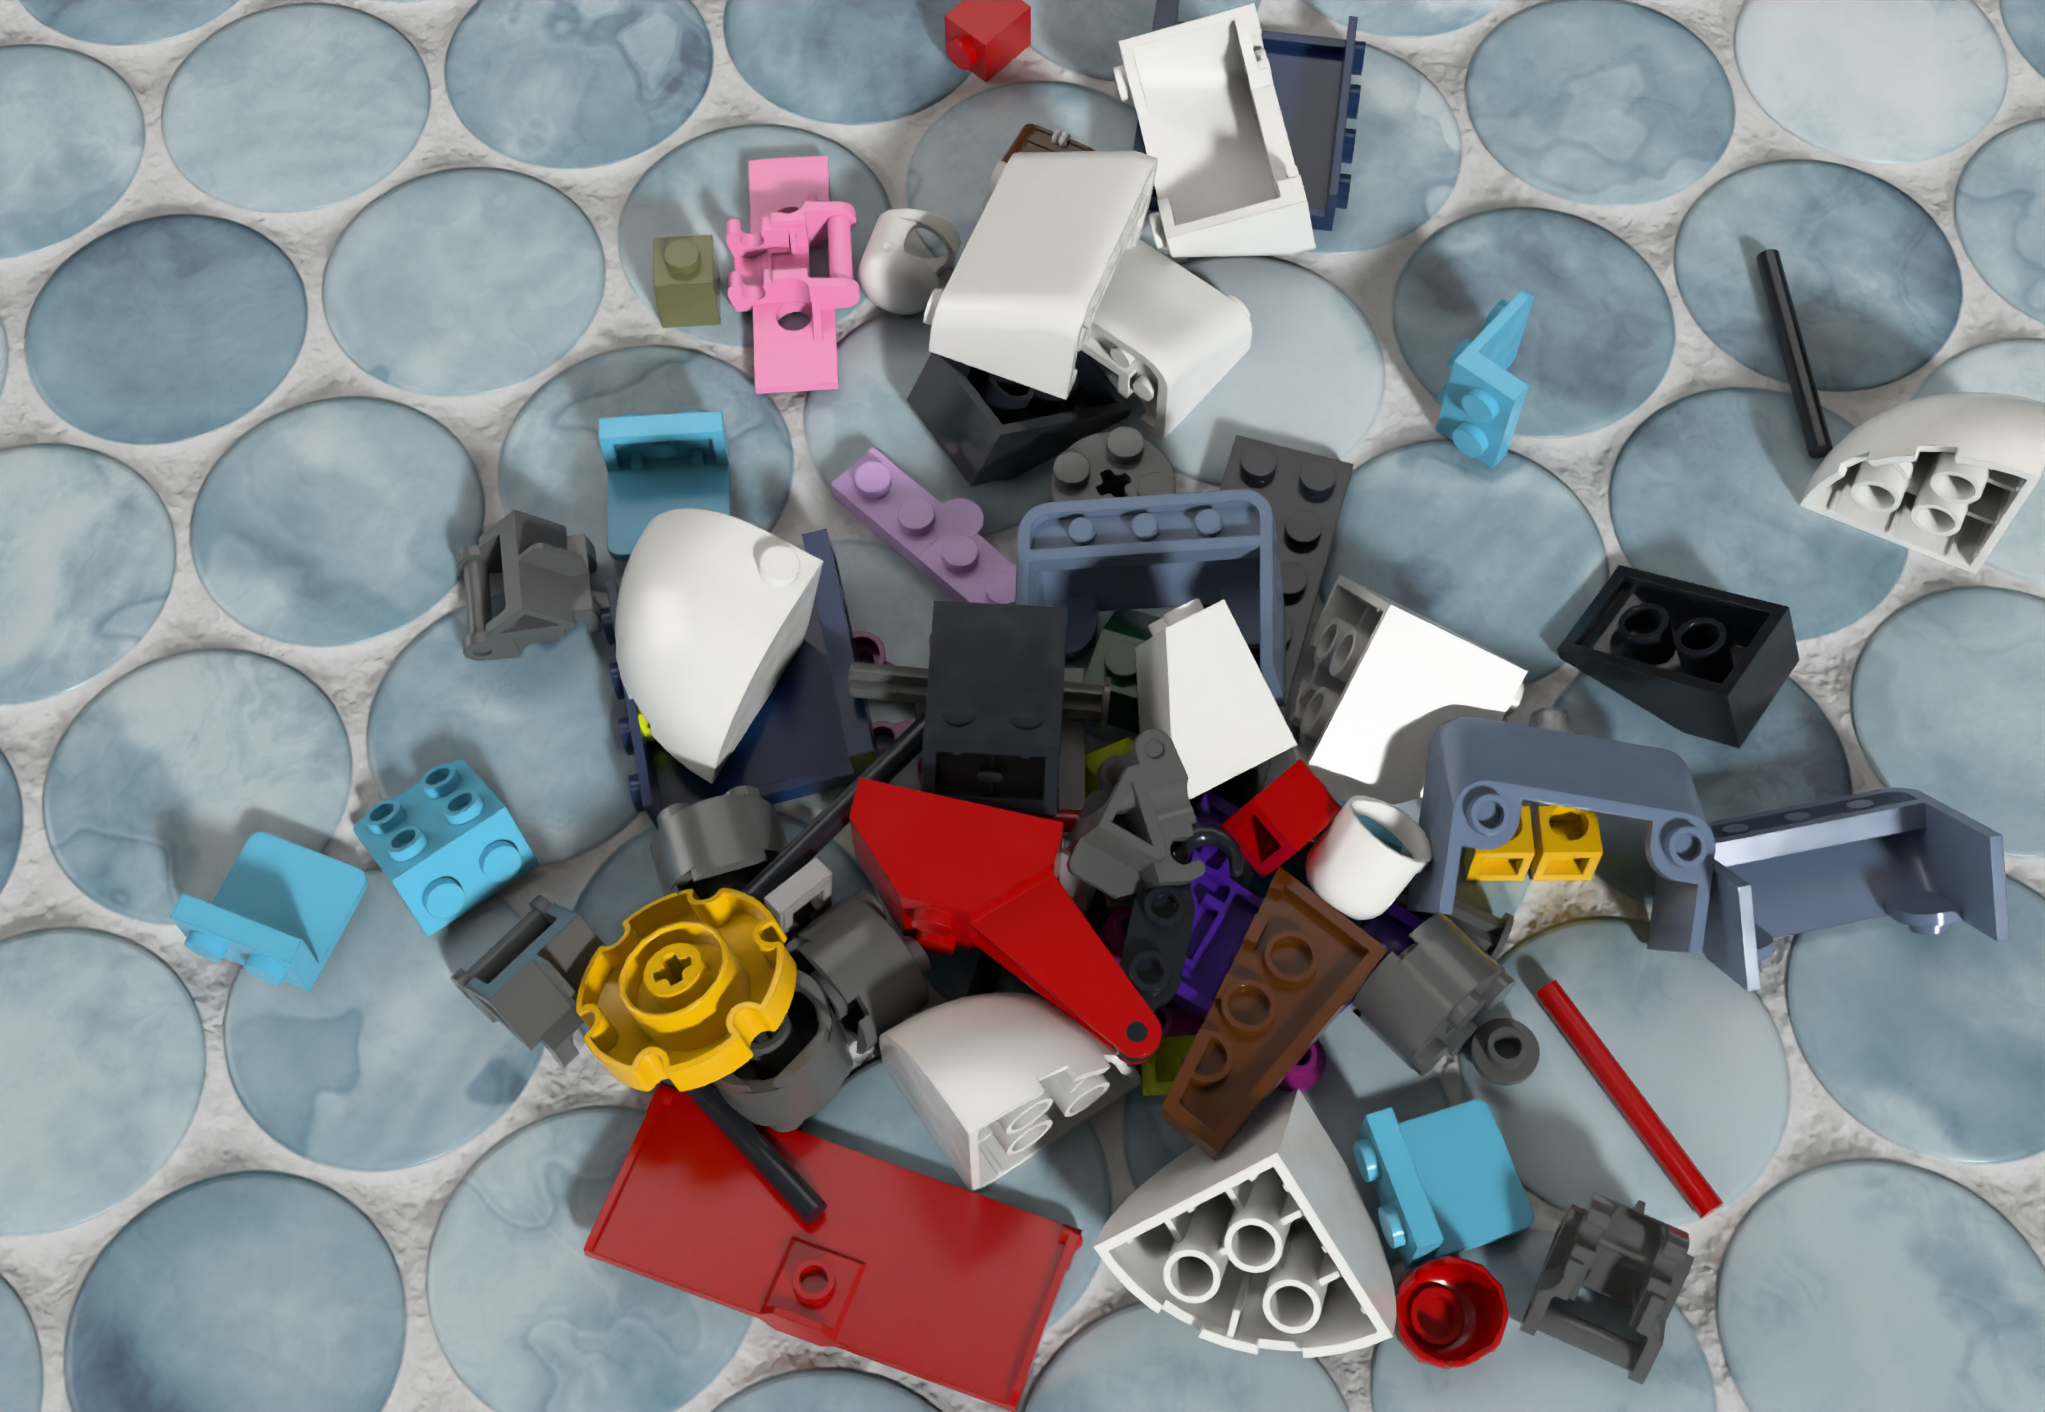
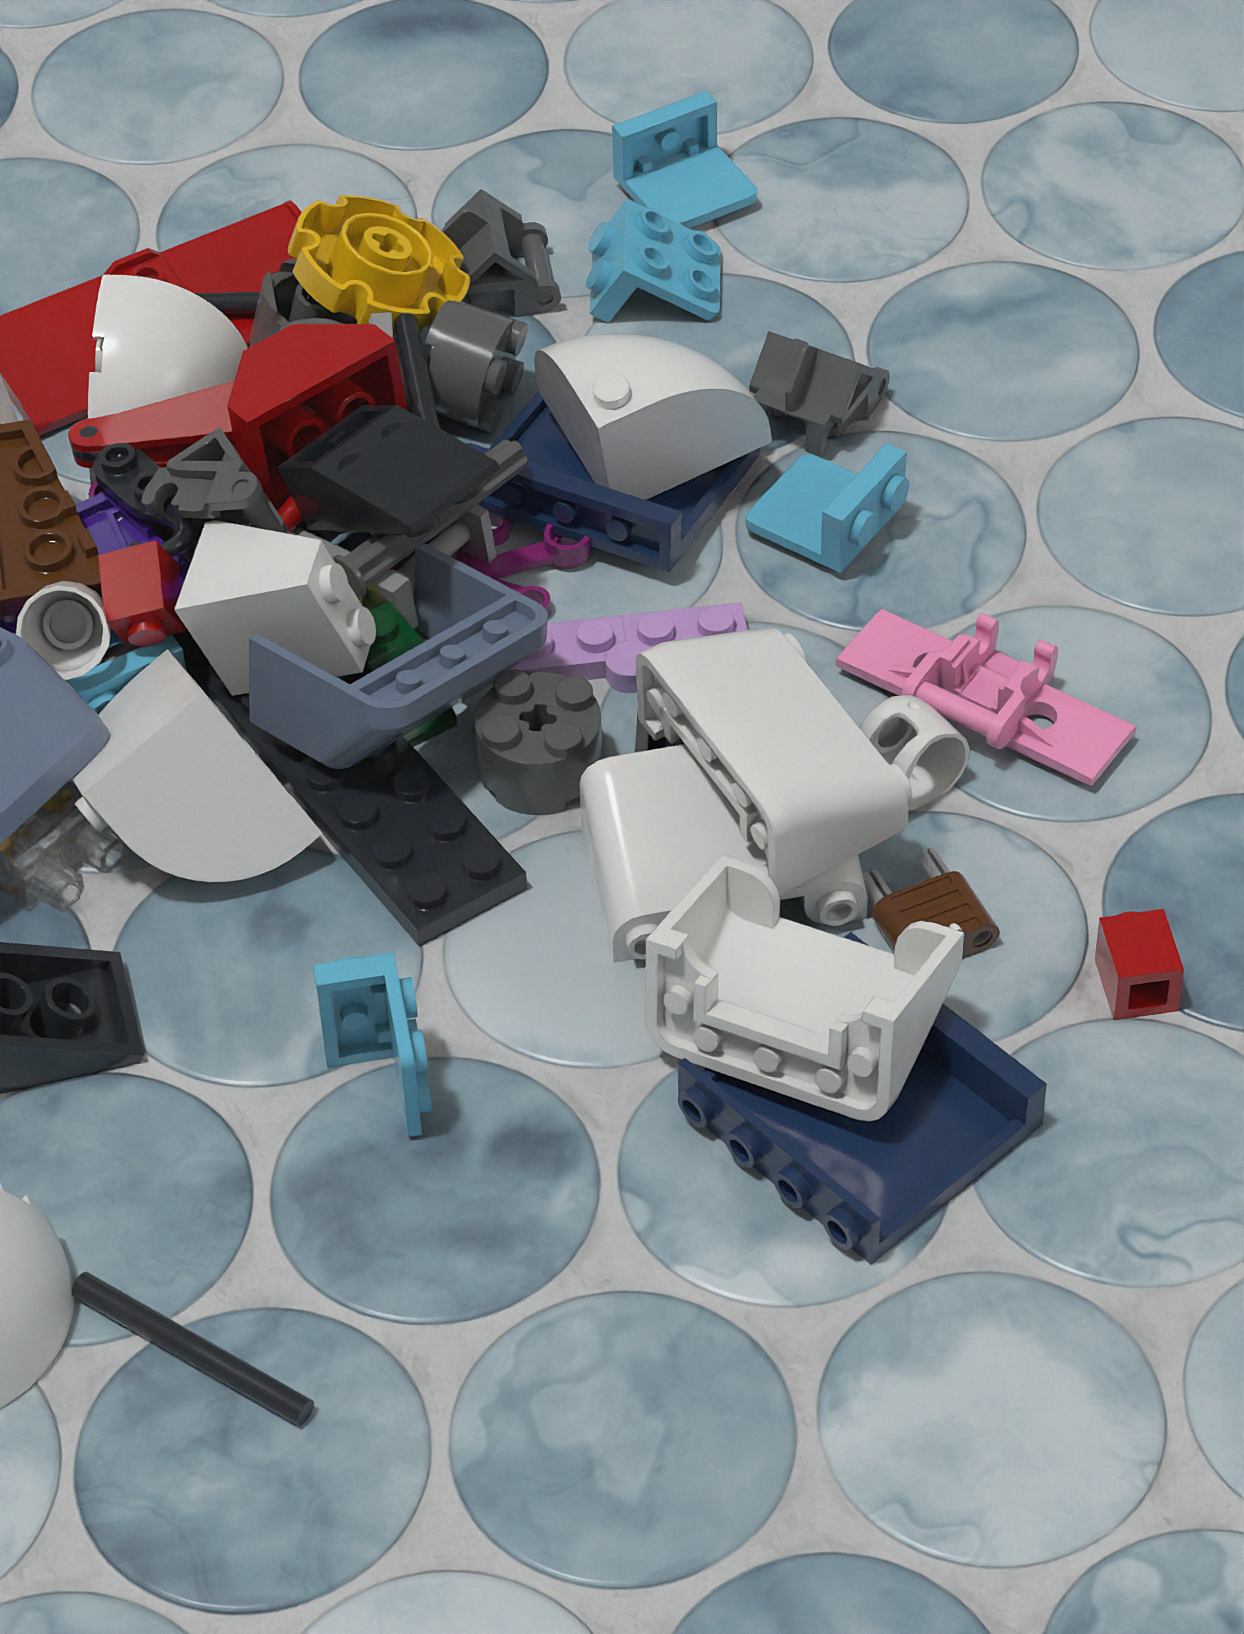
camera: 130 degrees right, 15 degrees down
(686, 281) = (1029, 605): olive brick -> none

